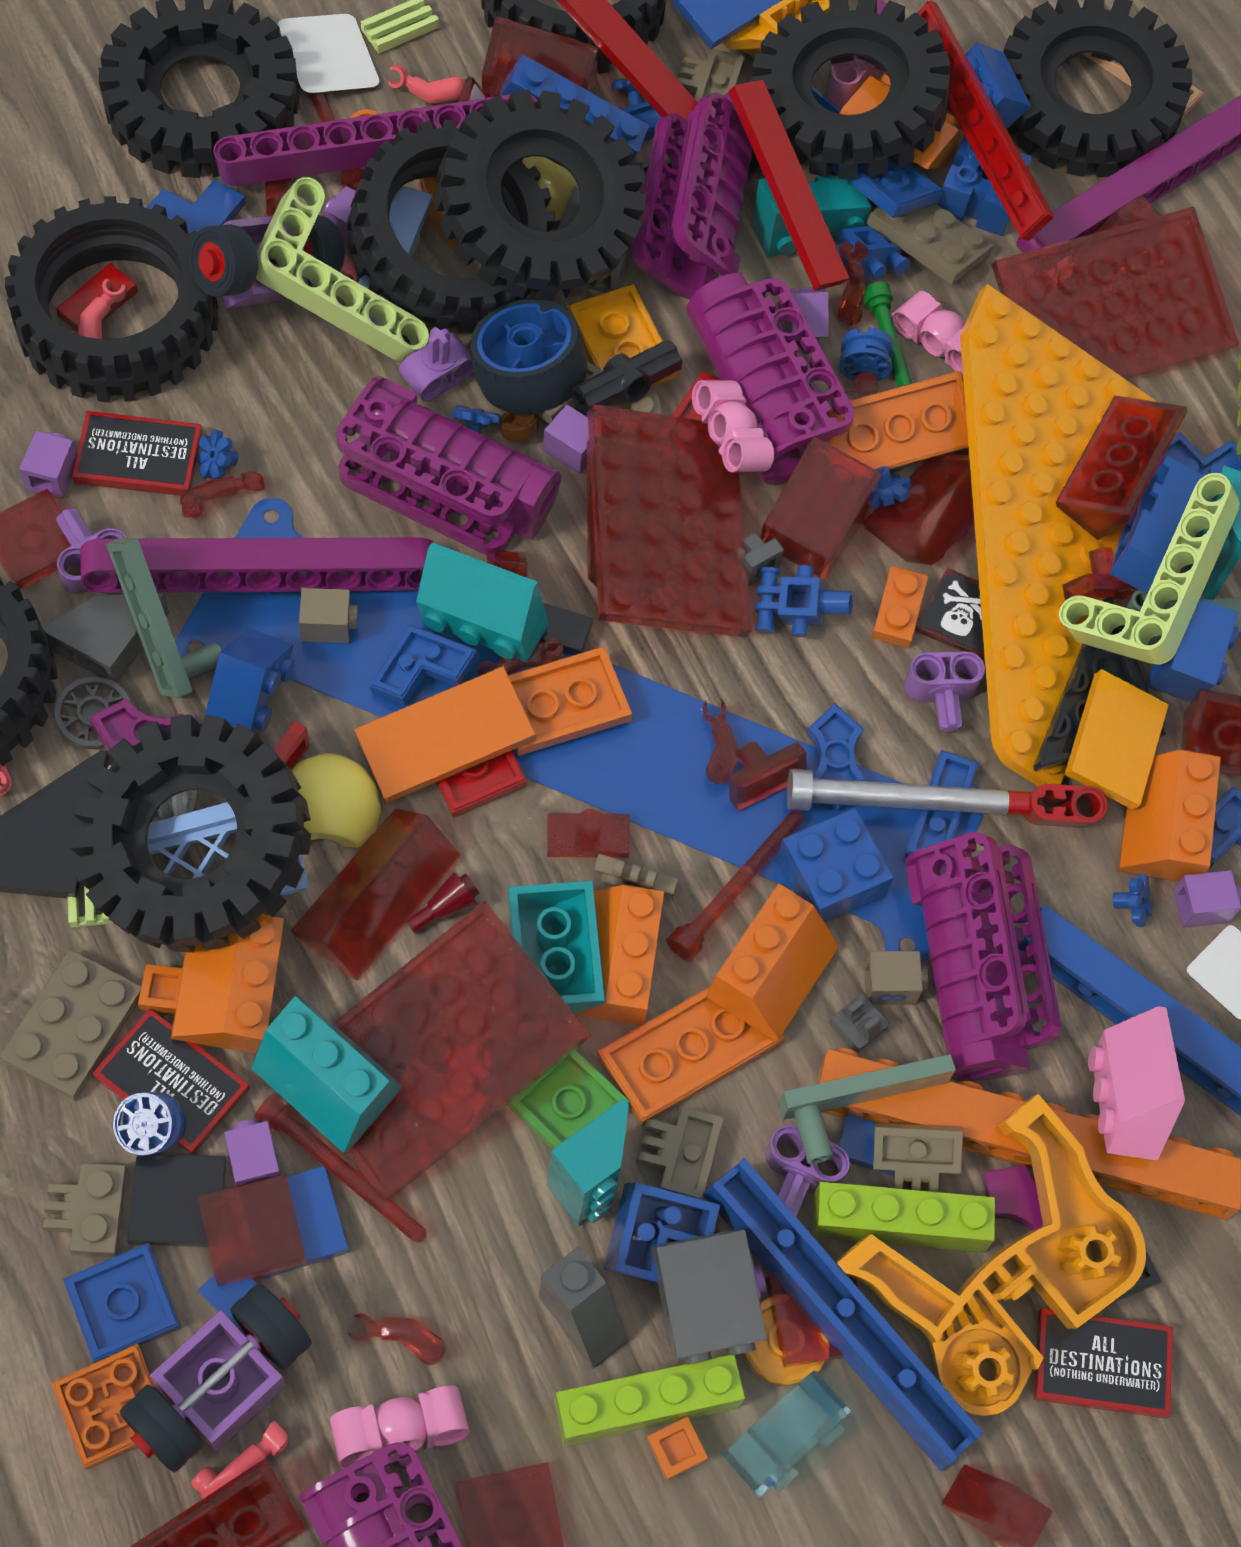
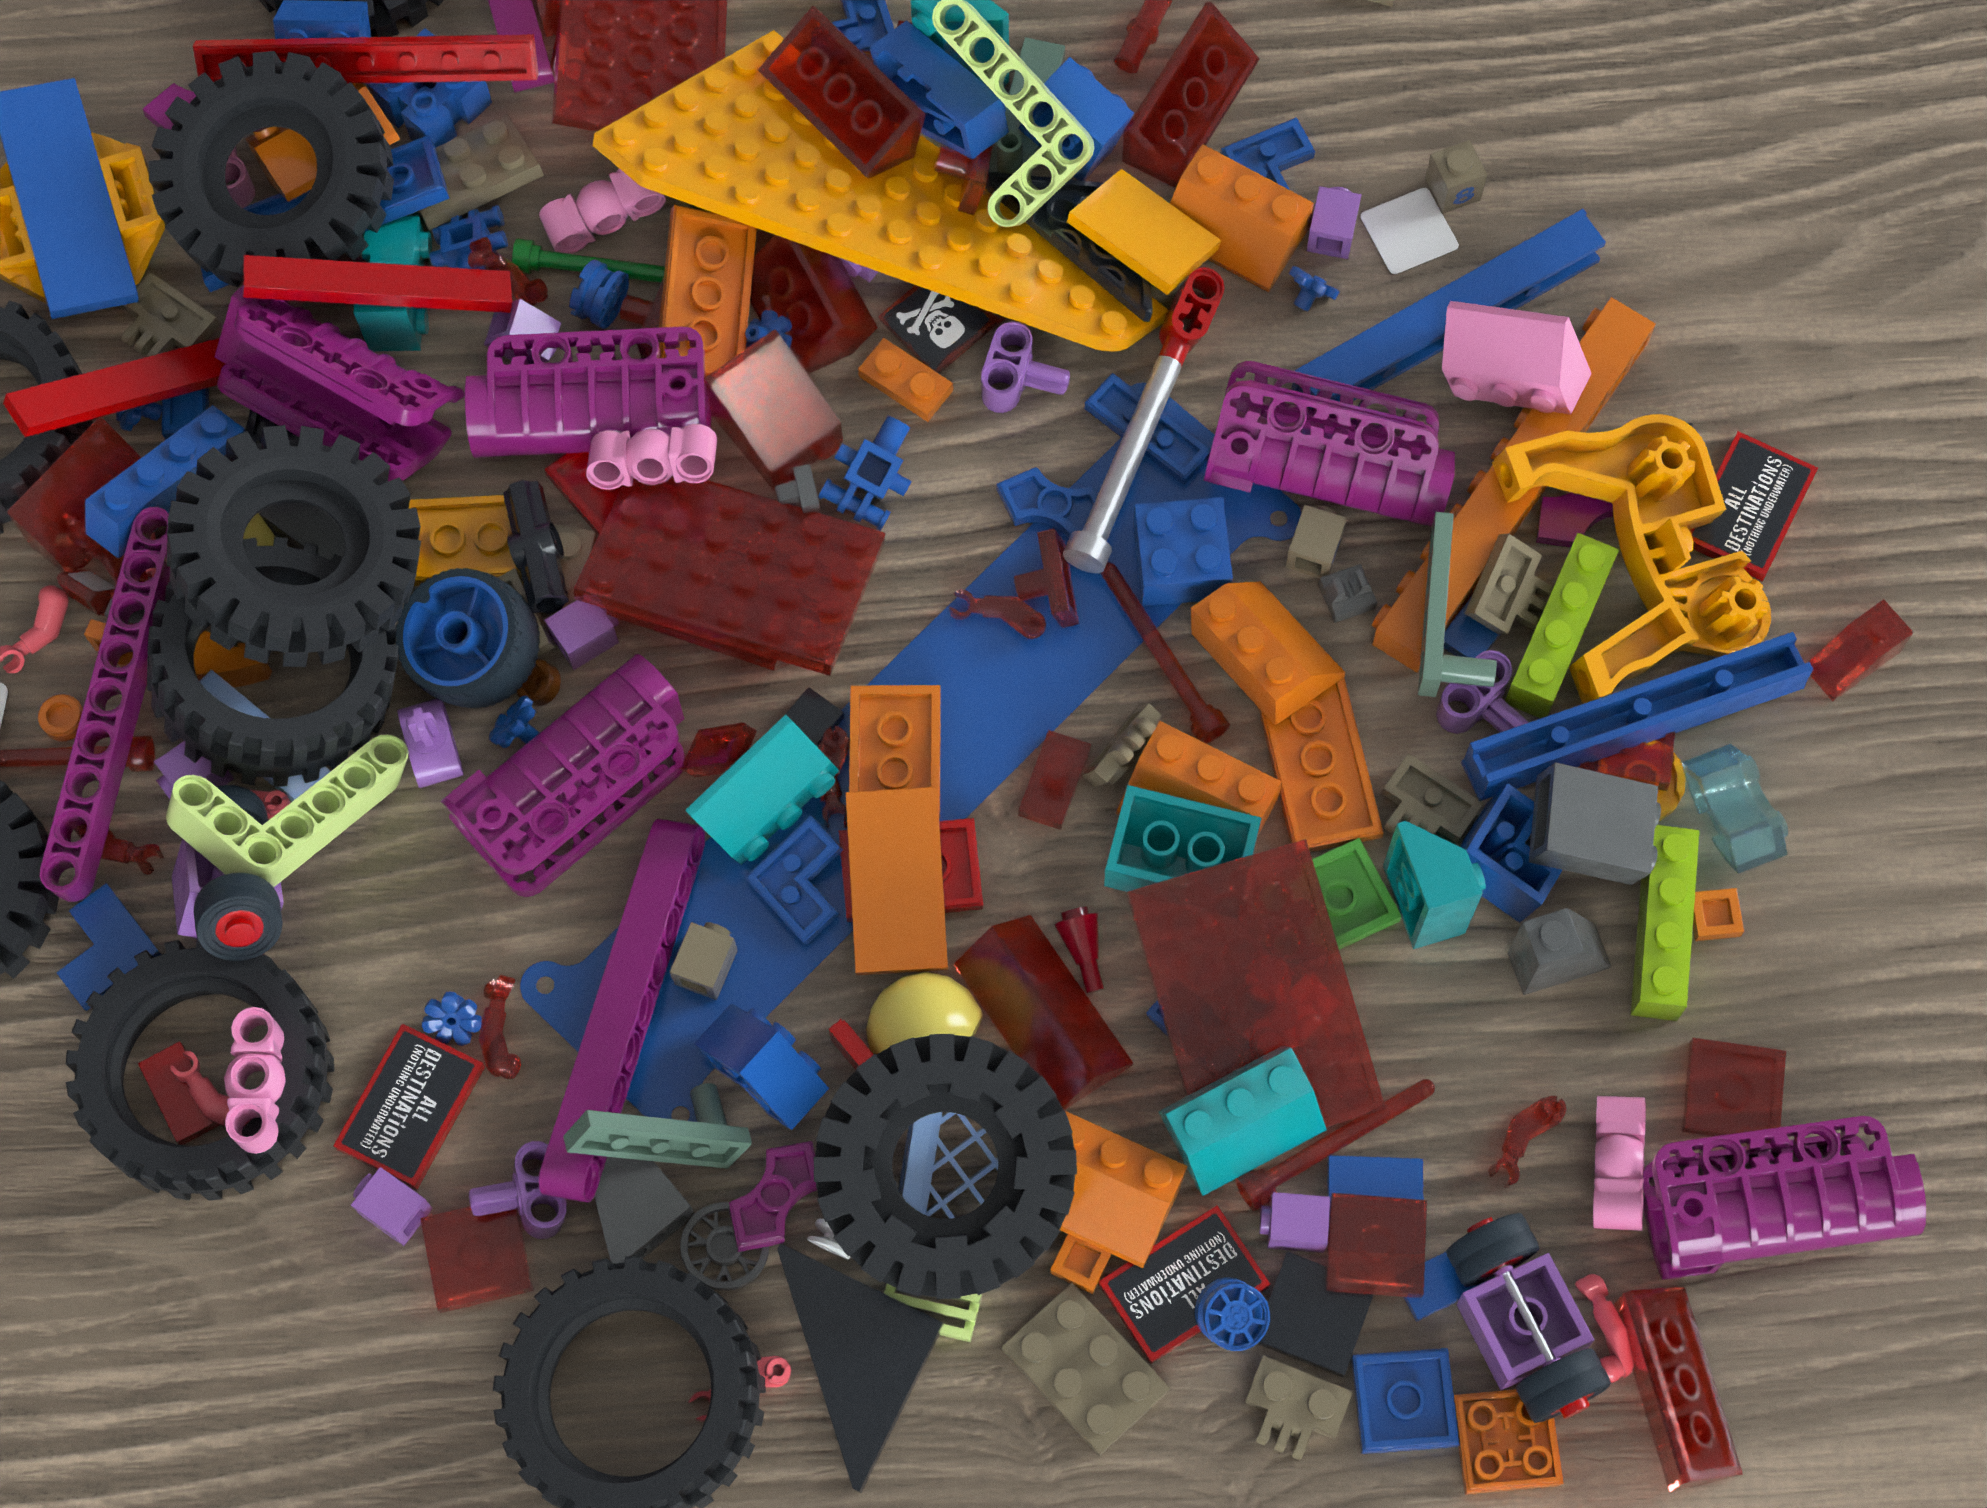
camera: 60 degrees left, 5 degrees up
(128, 310) = (251, 1058): none -> bright pink piece

